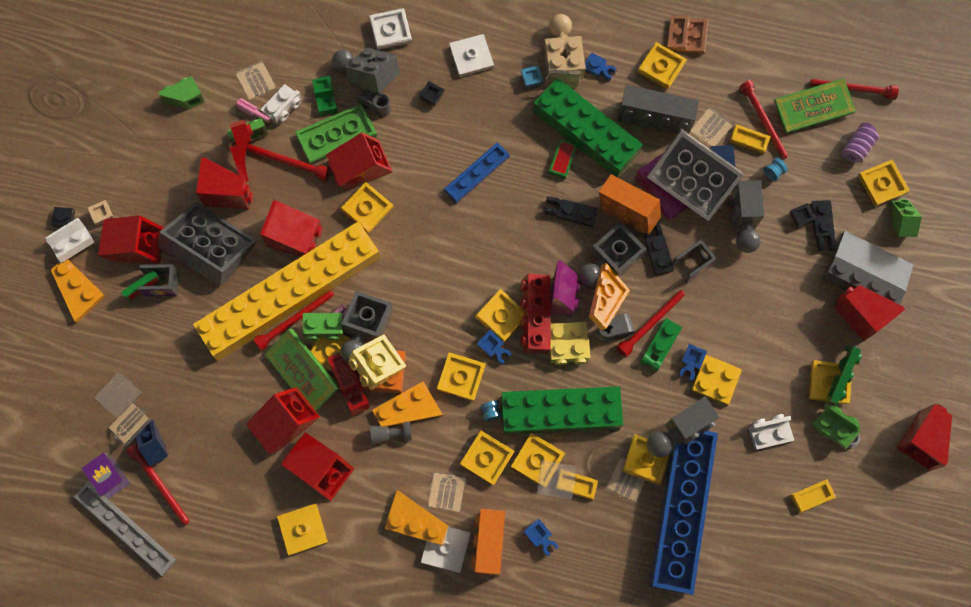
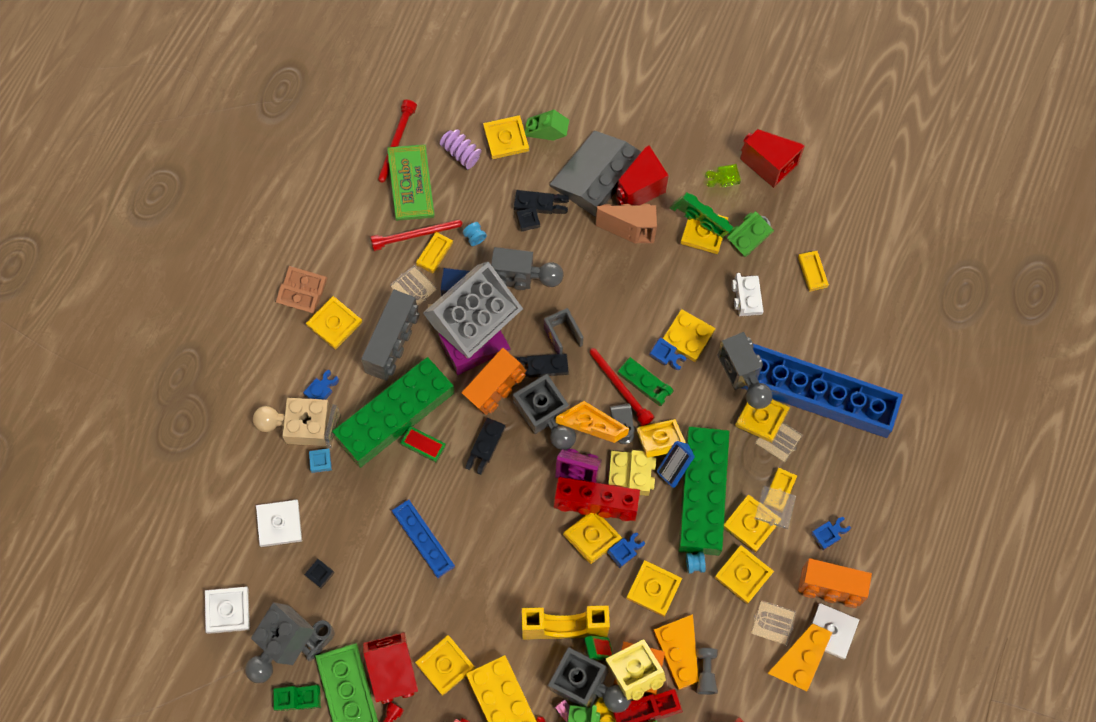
camera: 80 degrees left, 5 degrees down
(397, 331) = (598, 647): none -> tile
(413, 296) = (544, 626): none -> yellow arch
(582, 379) = (676, 463): none -> slope
(605, 364) = (659, 437): none -> yellow plate
(821, 309) = (630, 222): none -> nougat slope
(896, 398) = (725, 175): none -> clear neon green plate

